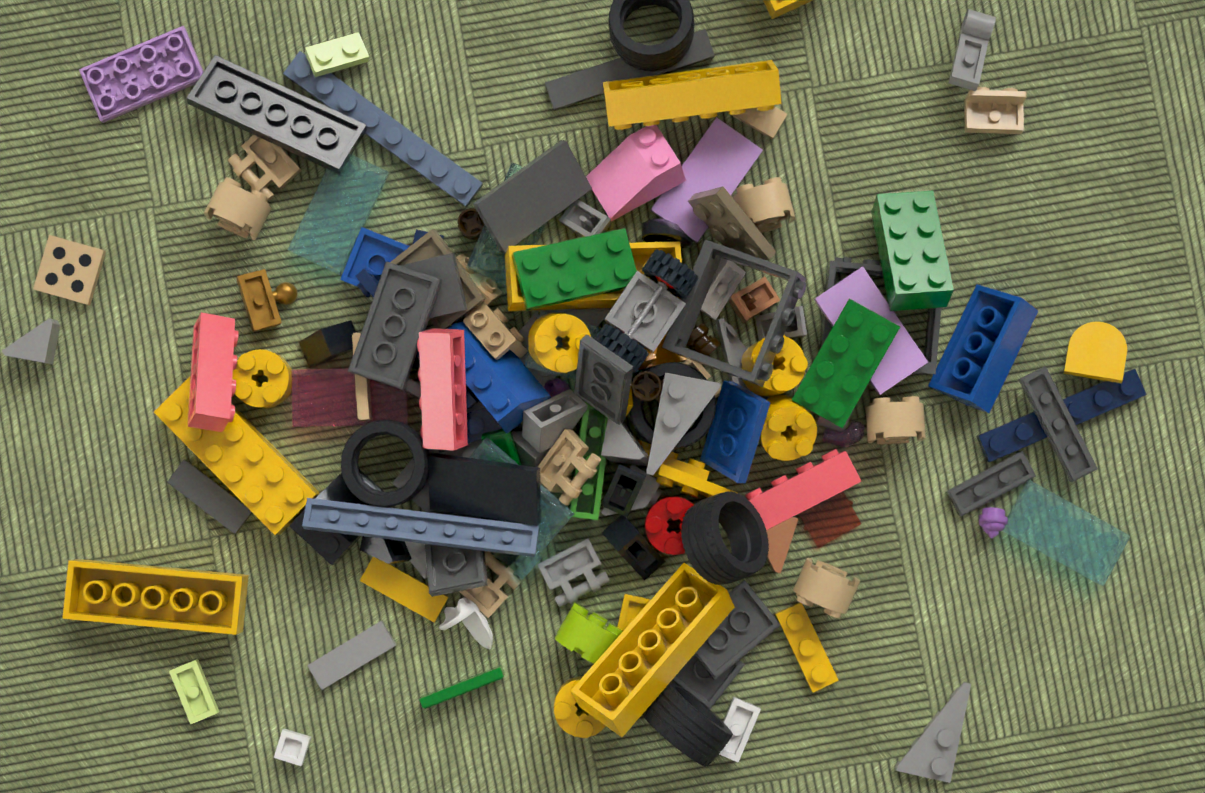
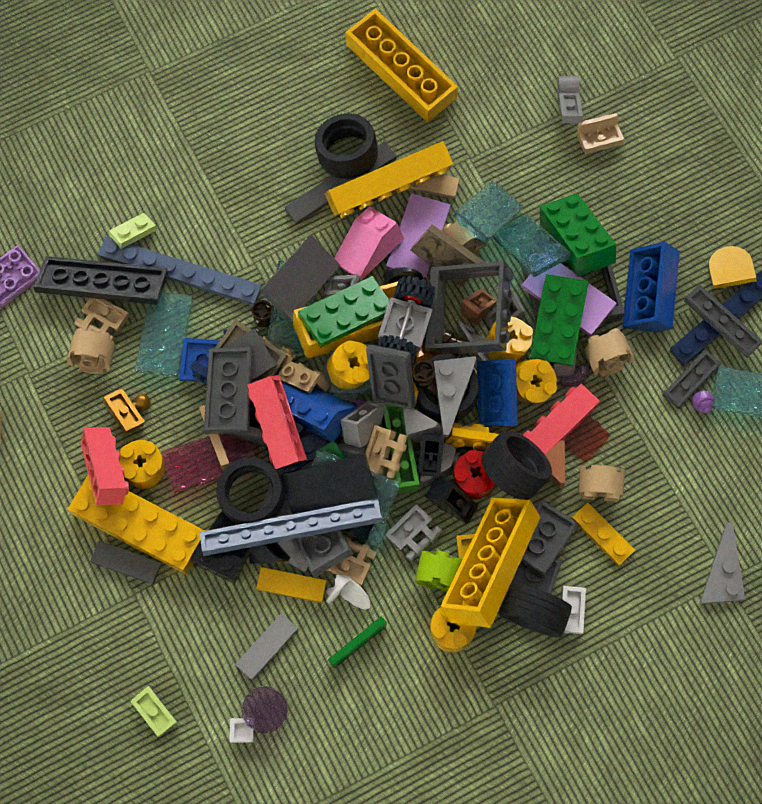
camera: 15 degrees left, 15 degrees down
(155, 596) = (104, 646): yellow brick -> none
(326, 732) = (264, 709): none -> tile
(328, 343) = (183, 426): black slope -> none
(722, 287) = (453, 301): white plate -> none
(806, 182) = (488, 211): none -> clear light blue tile
(846, 246) = (531, 245): none -> clear light blue tile

